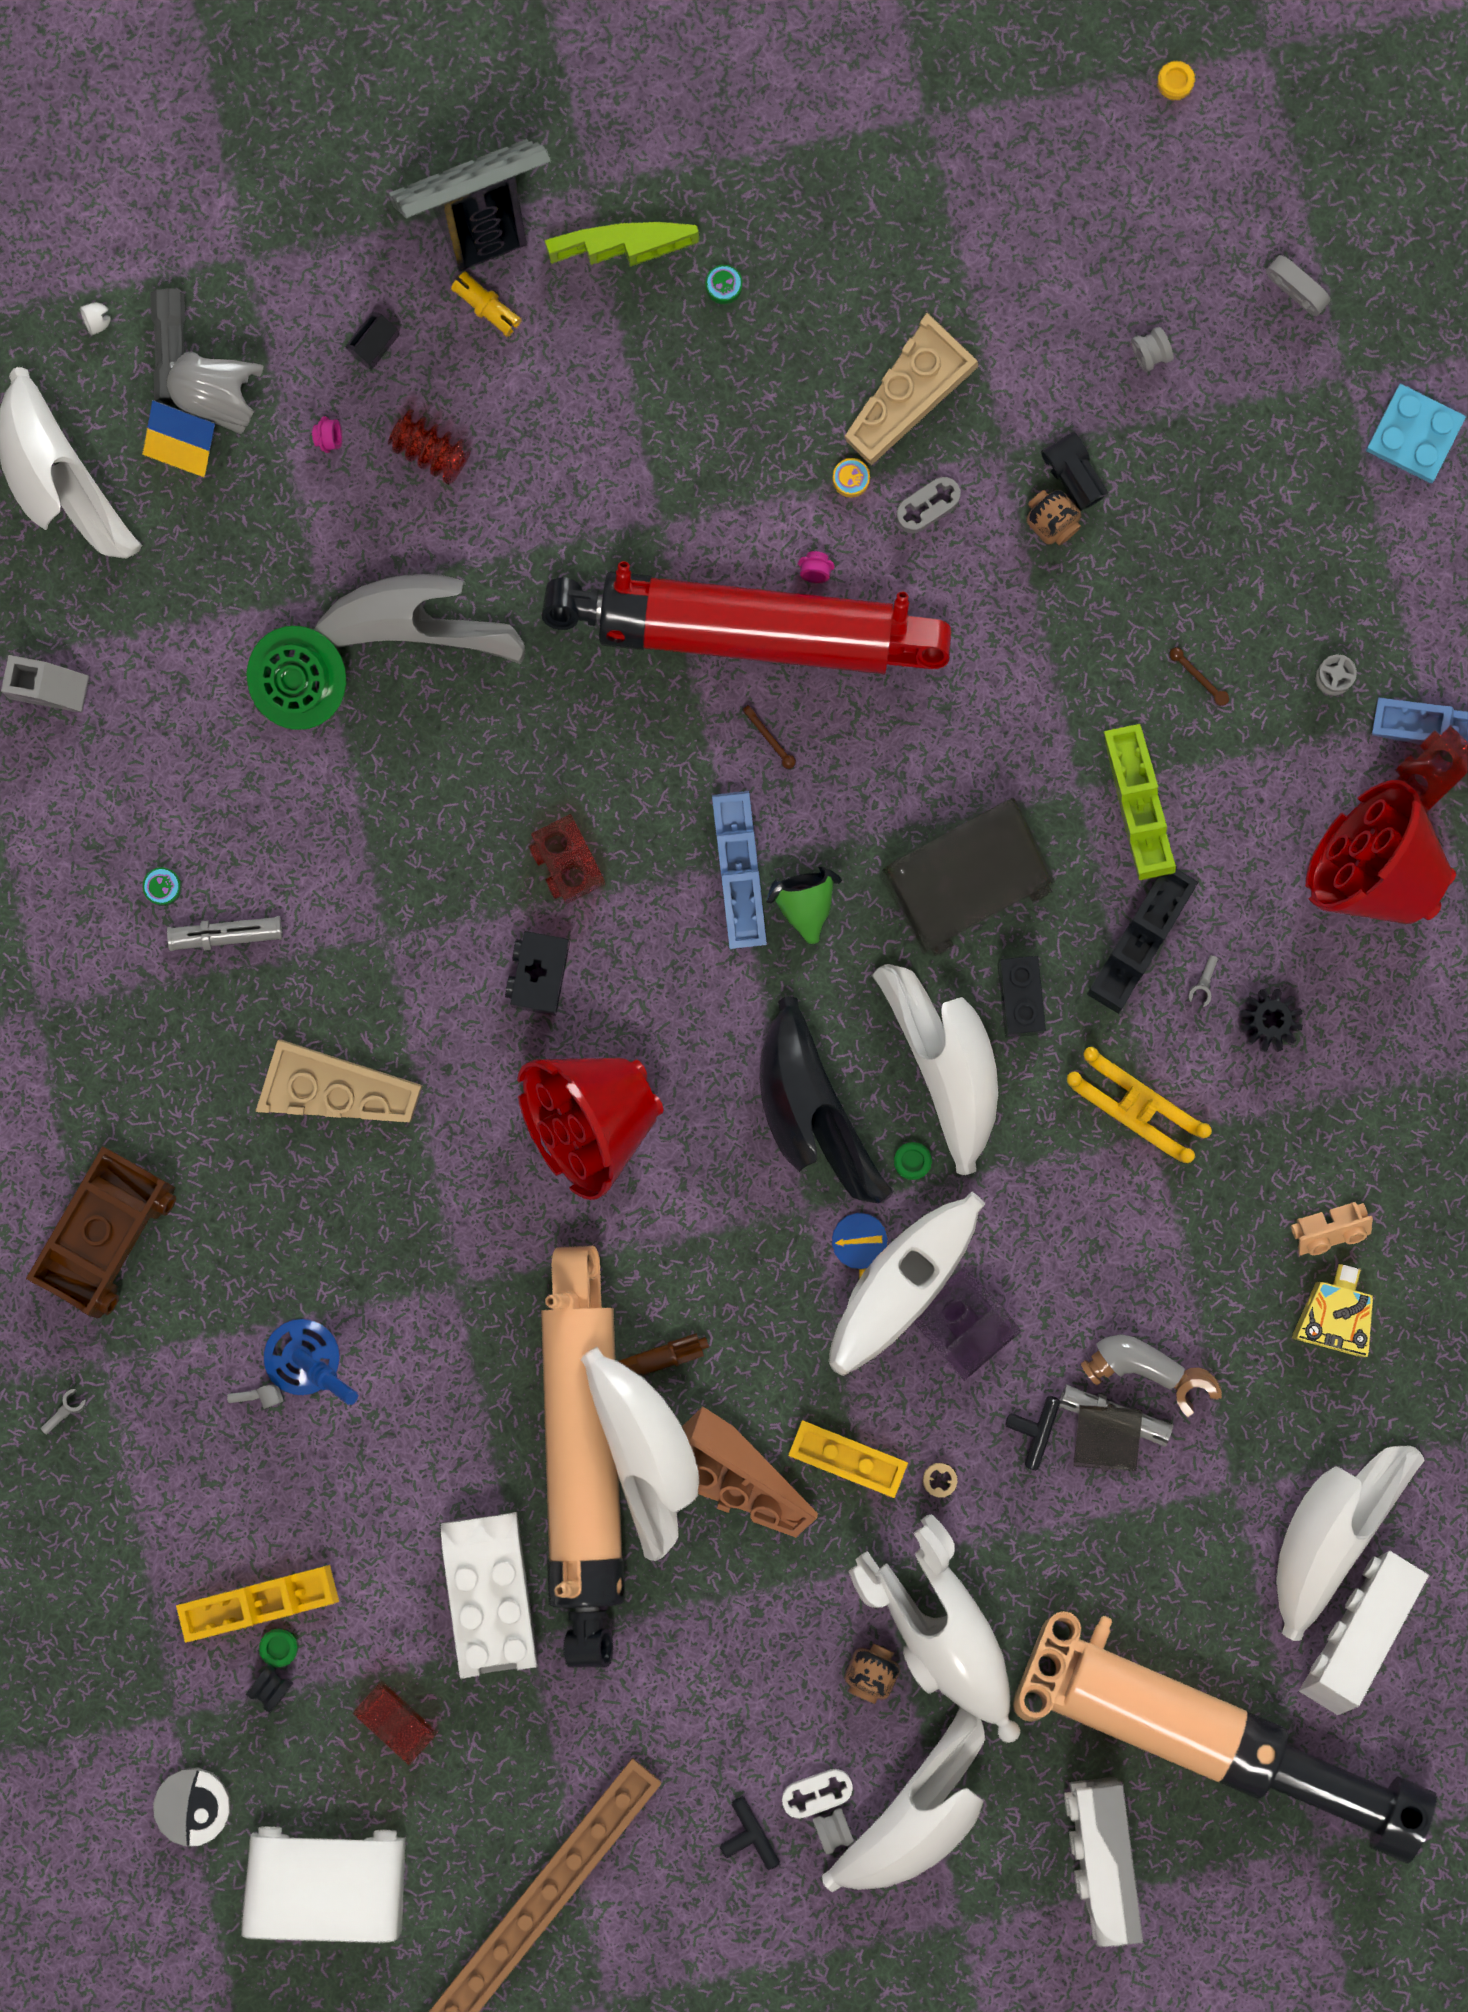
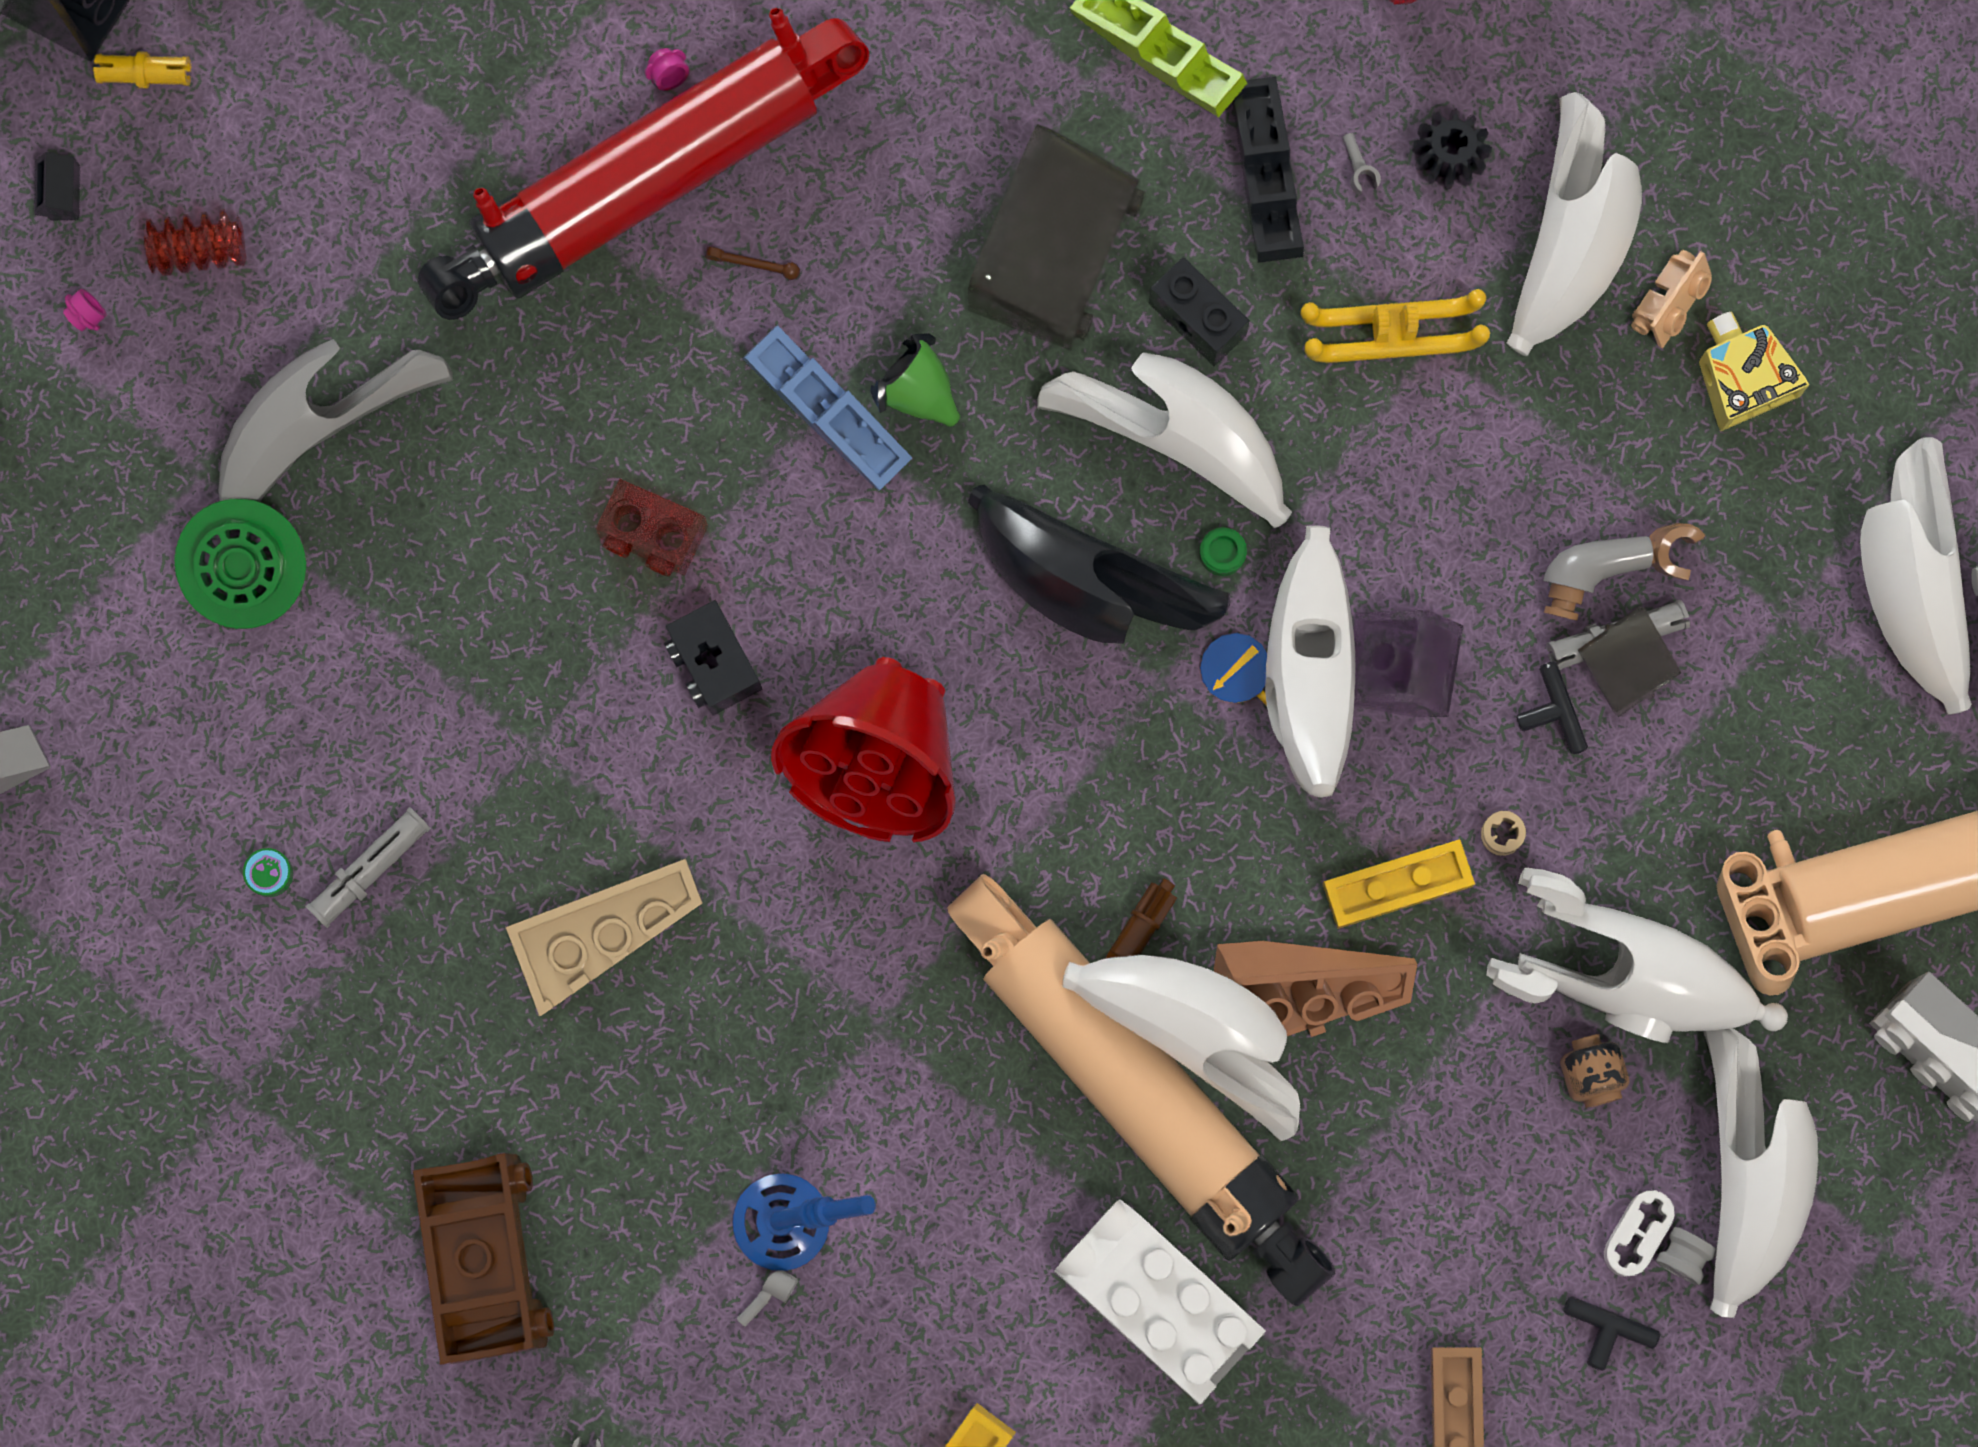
camera: 35 degrees left, 5 degrees down
(1310, 1139) = (1582, 231): none -> white piece

